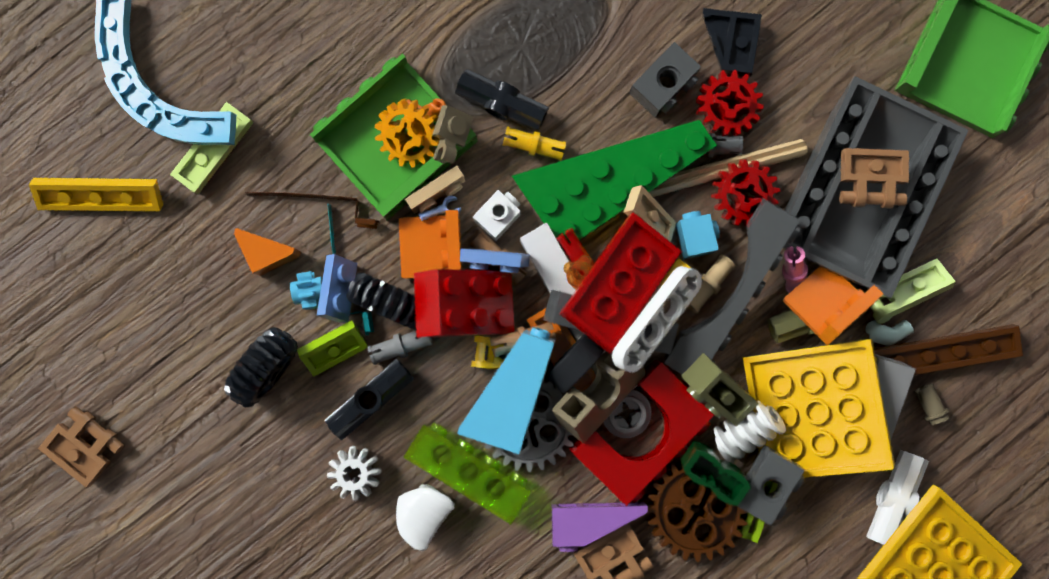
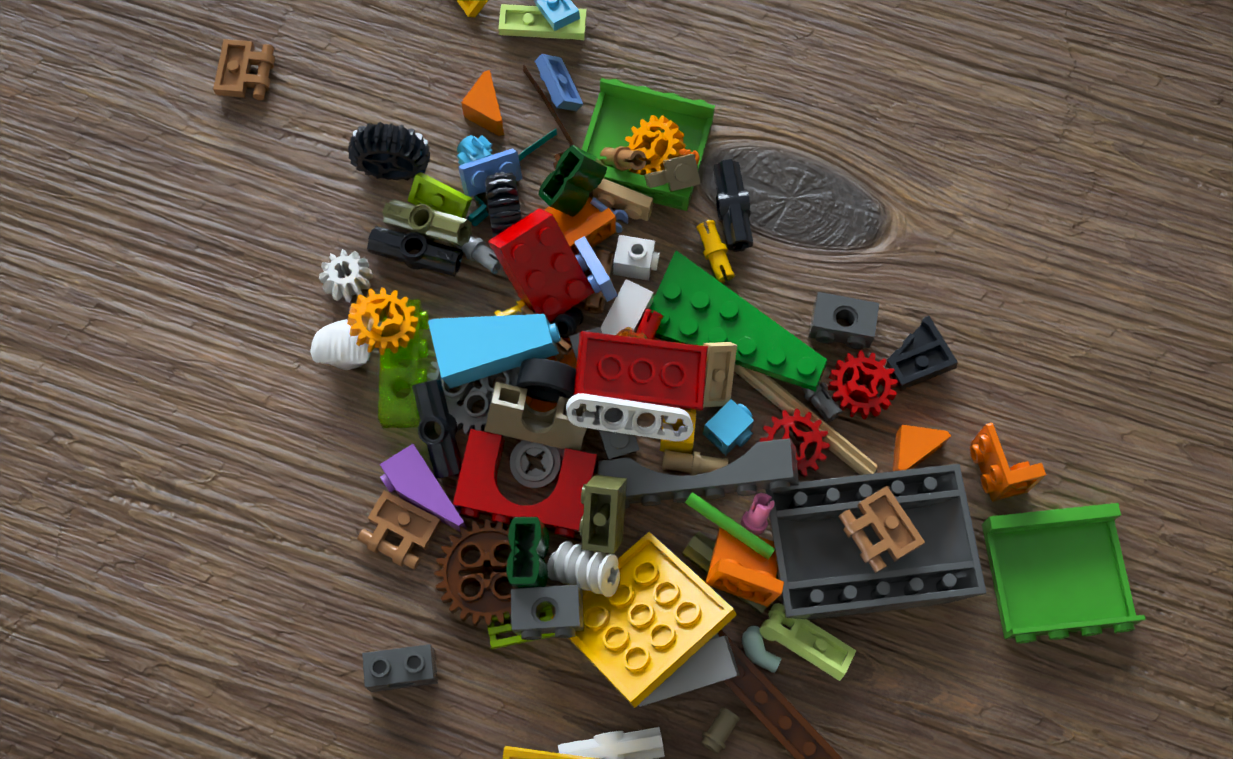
camera: 60 degrees right, 15 degrees down
(284, 173) = (558, 82): none -> medium blue plate
(365, 366) = (427, 222): none -> olive piece
(399, 223) = (572, 181): none -> dark green brick
(403, 166) = (623, 158): none -> medium nougat pin
(418, 480) = (370, 311): none -> light orange gear
(524, 313) = (568, 322): none -> black pin
(550, 478) = (432, 409): none -> black piece
(791, 294) = (730, 525): none -> bright green bar
(808, 101) = (915, 445): none -> orange slope
(872, 50) = (995, 471): none -> orange bracket

